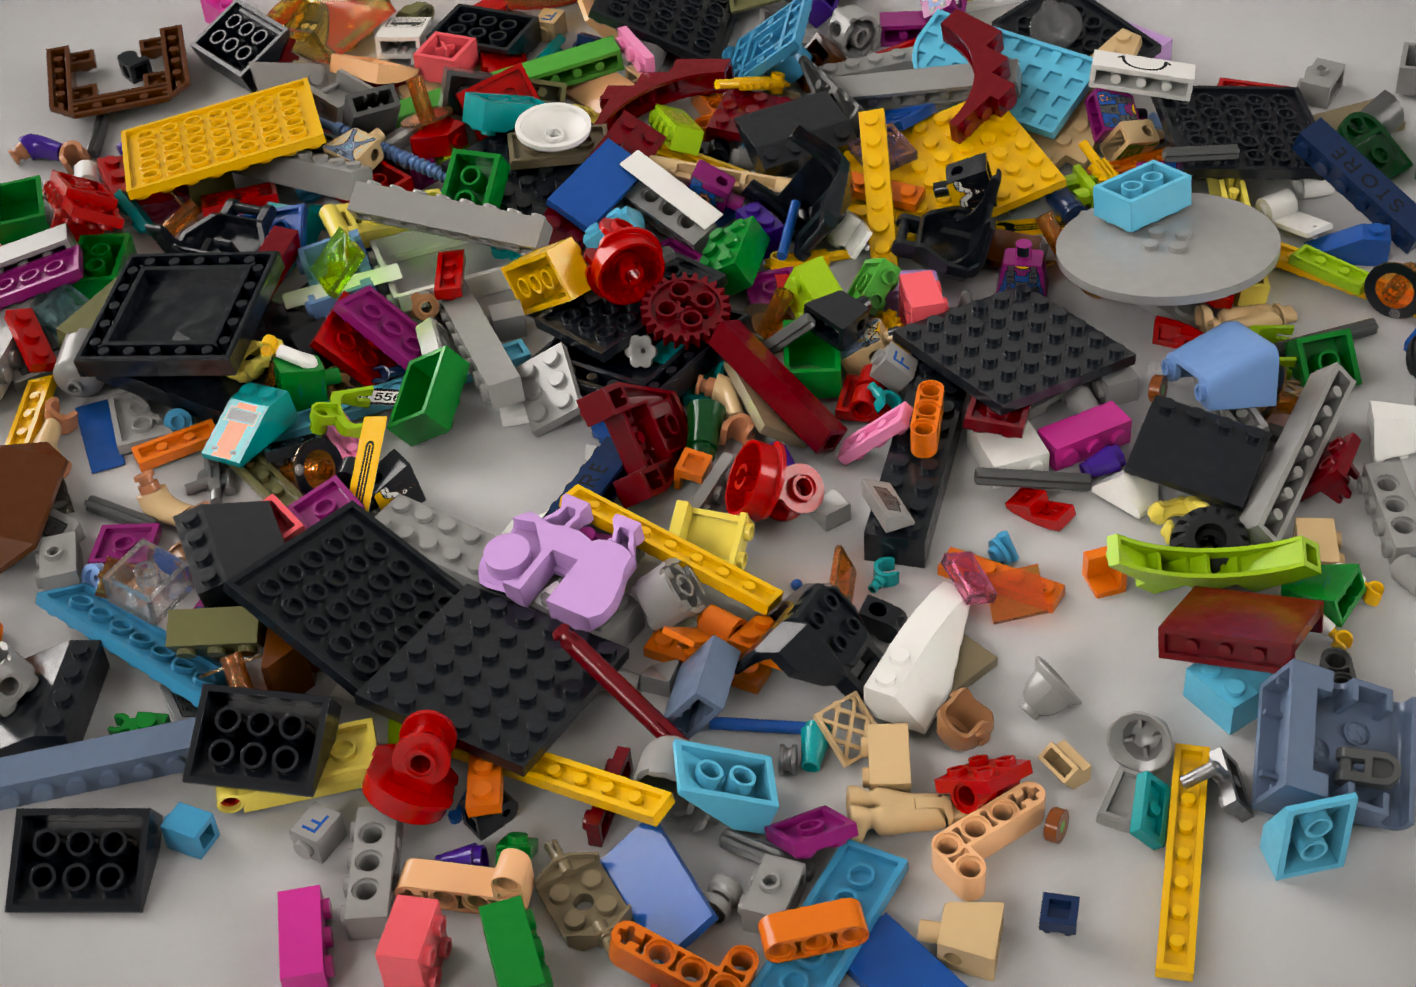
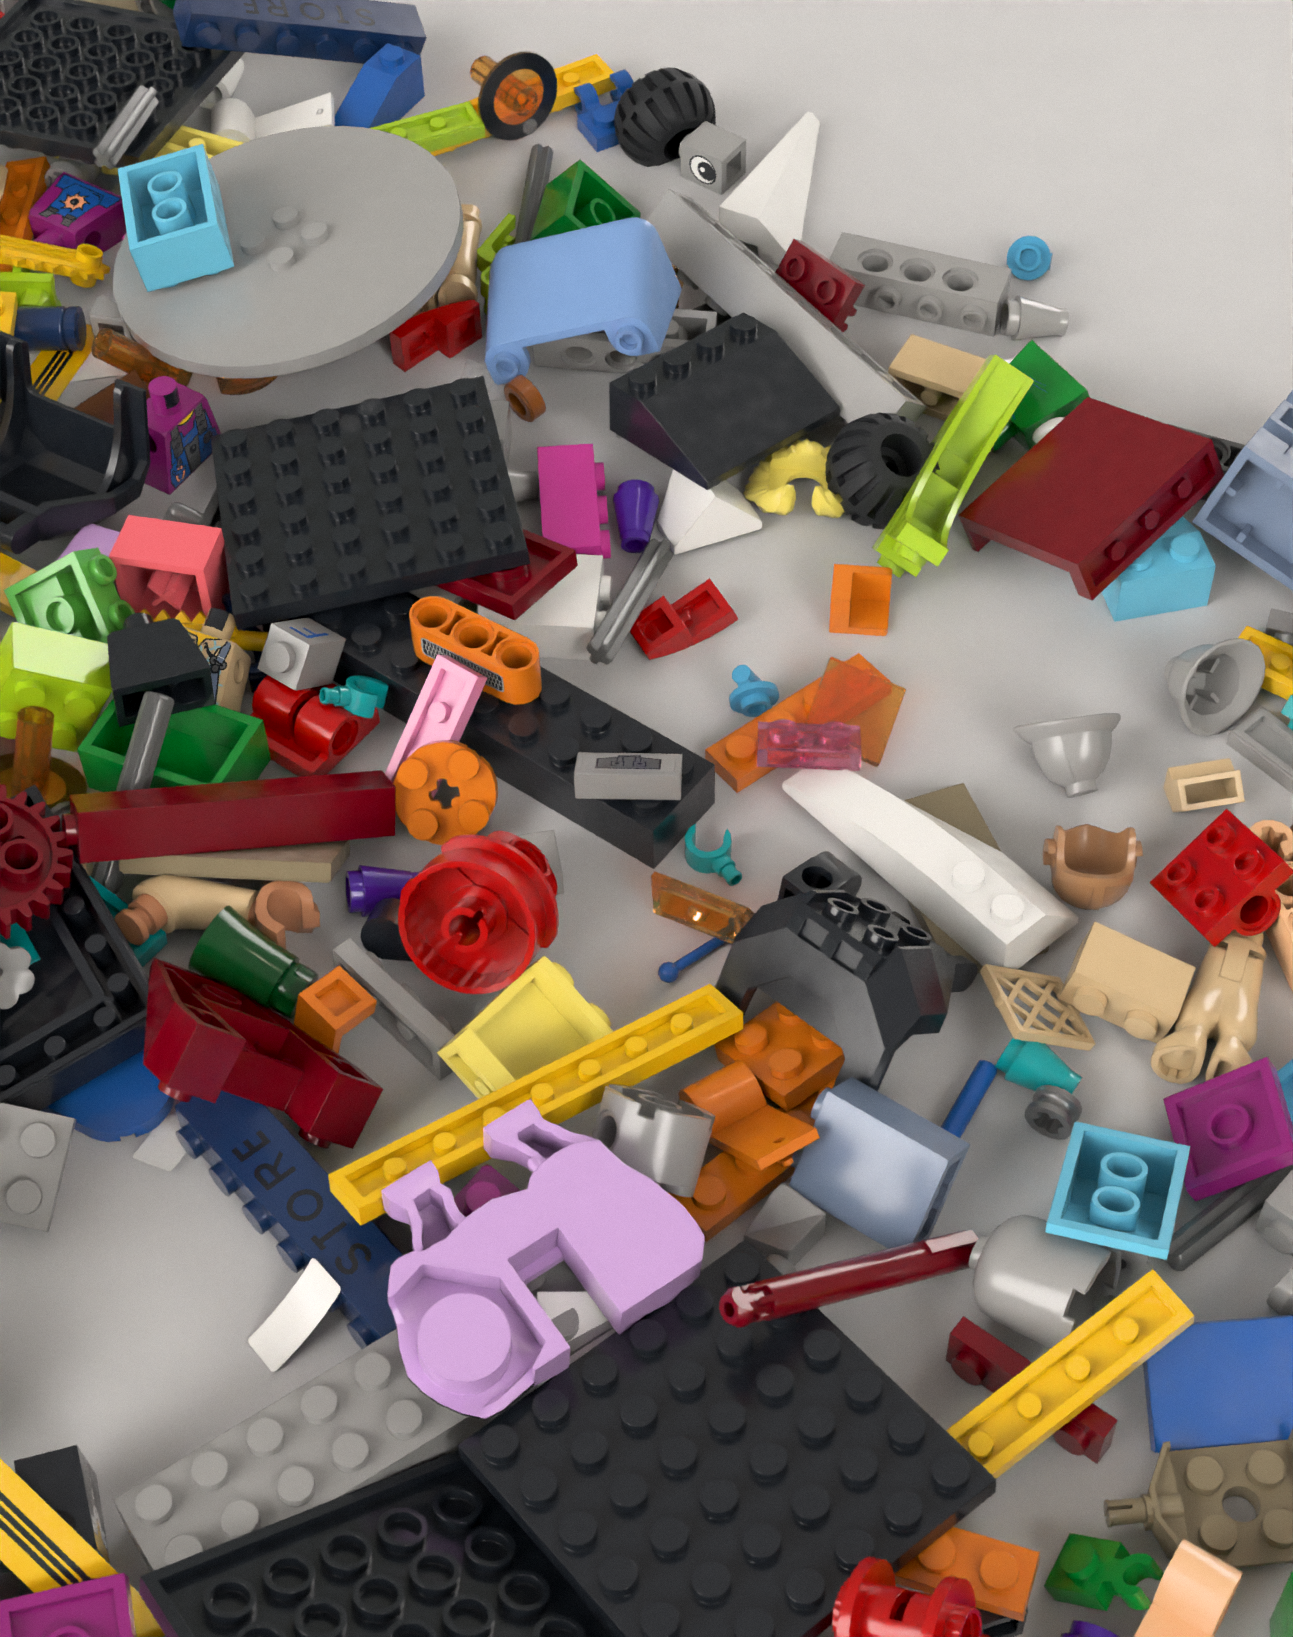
camera: 70 degrees left, 10 degrees up
(844, 442) = (463, 769): none -> orange plate

